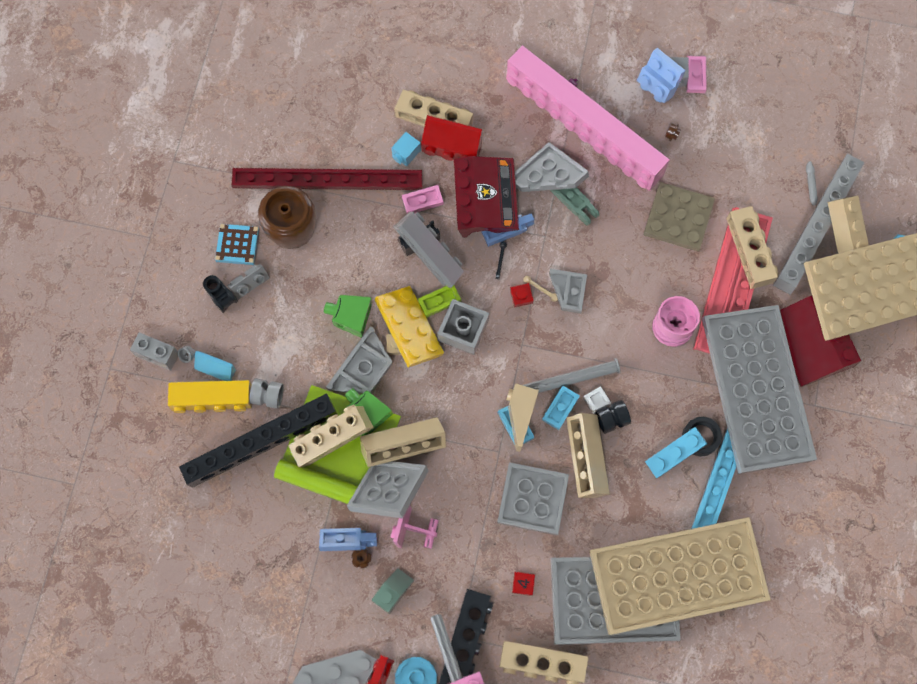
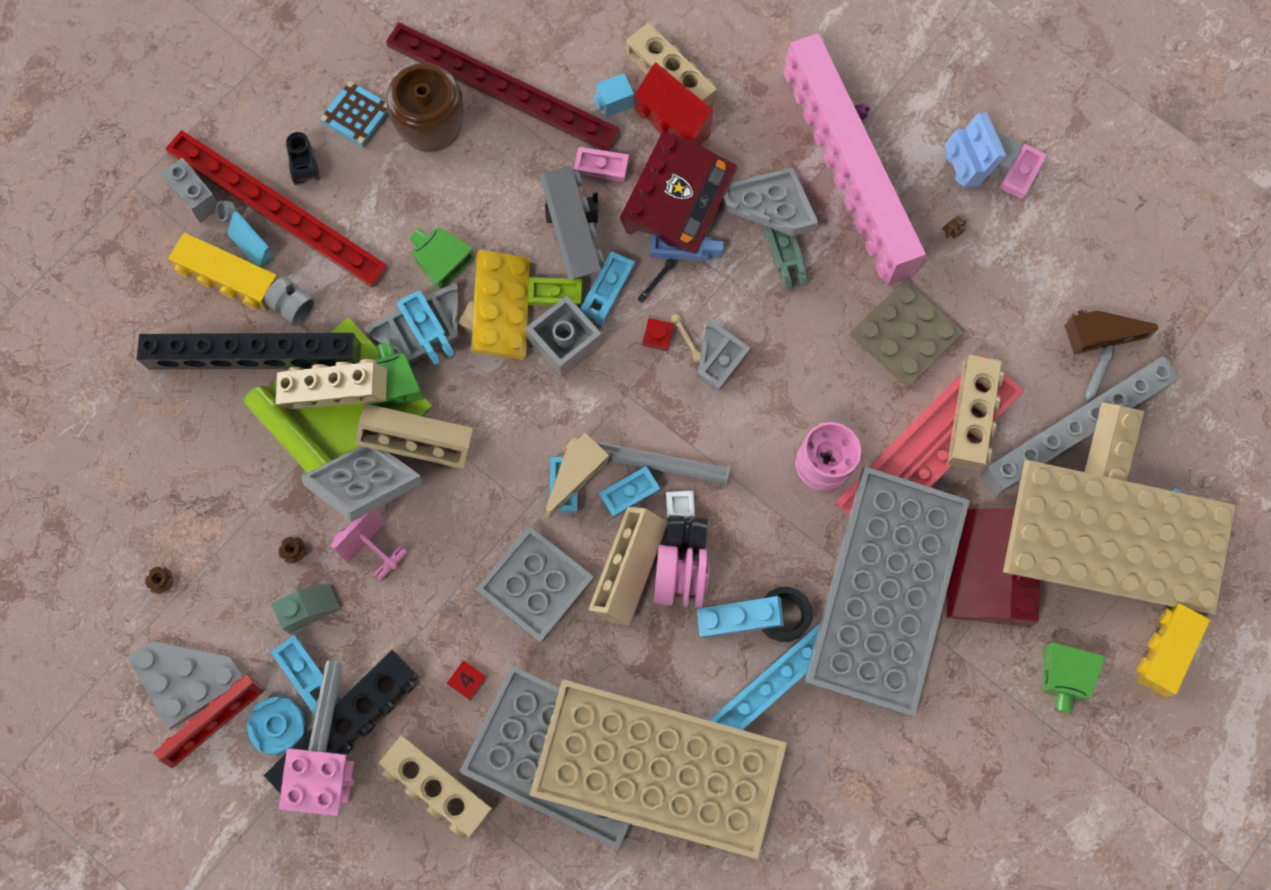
camera: 25 degrees right, 0 degrees up
(220, 335) = (277, 209): none -> red plate
(253, 278) = (340, 164): light grey hinge -> none
(289, 624) = (159, 587): none -> reddish brown plate
(346, 539) = (286, 518): medium blue hinge -> none
(367, 365) = (424, 324): none -> medium azure hinge
(414, 634) = (300, 670): none -> medium azure plate
(472, 279) = (607, 287): none -> medium azure plate
(629, 444) = (681, 576): none -> bright pink wheel
(798, 154) = (1100, 329): none -> reddish brown slope
(895, 384) = (1069, 674): none -> bright green torso

